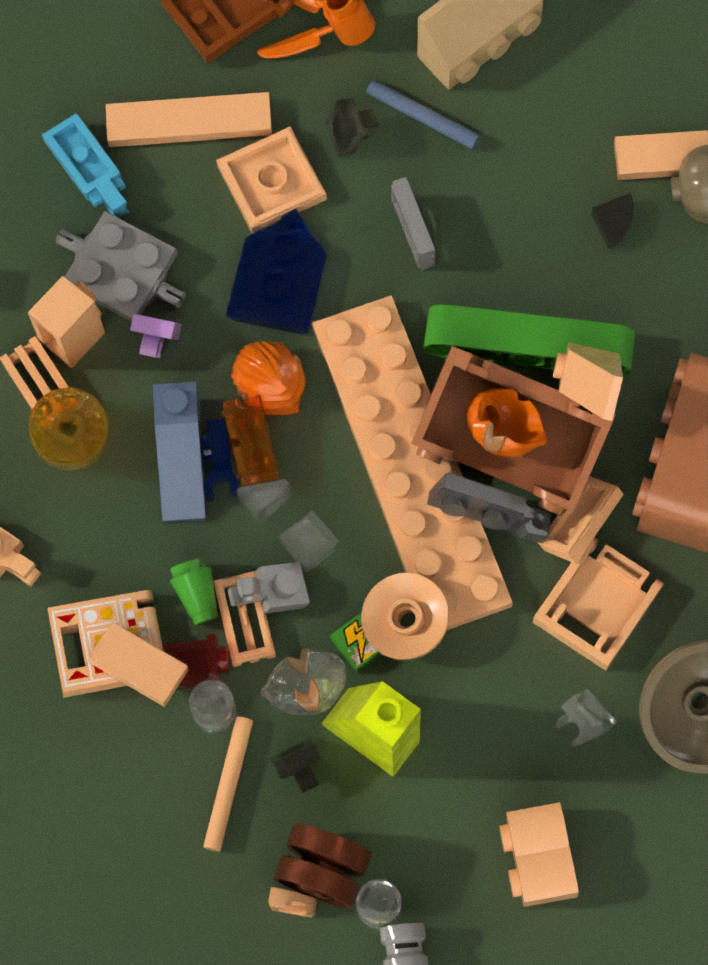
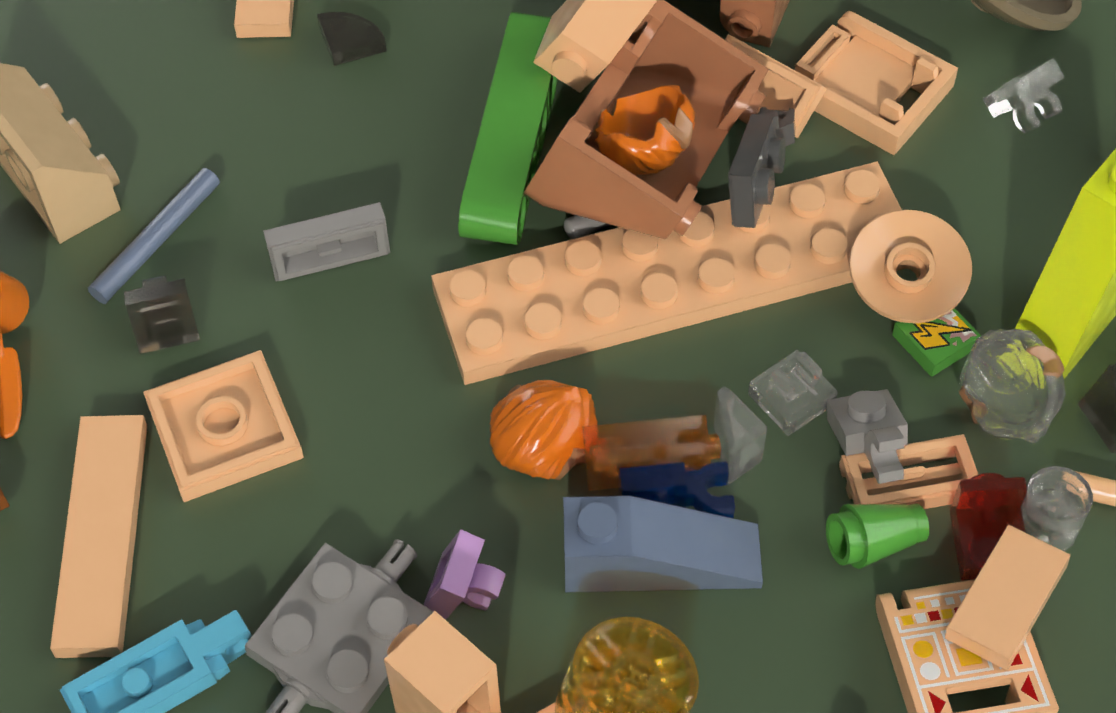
camera: 90 degrees left, 15 degrees down
(278, 277) = (382, 417): clear blue tile -> none

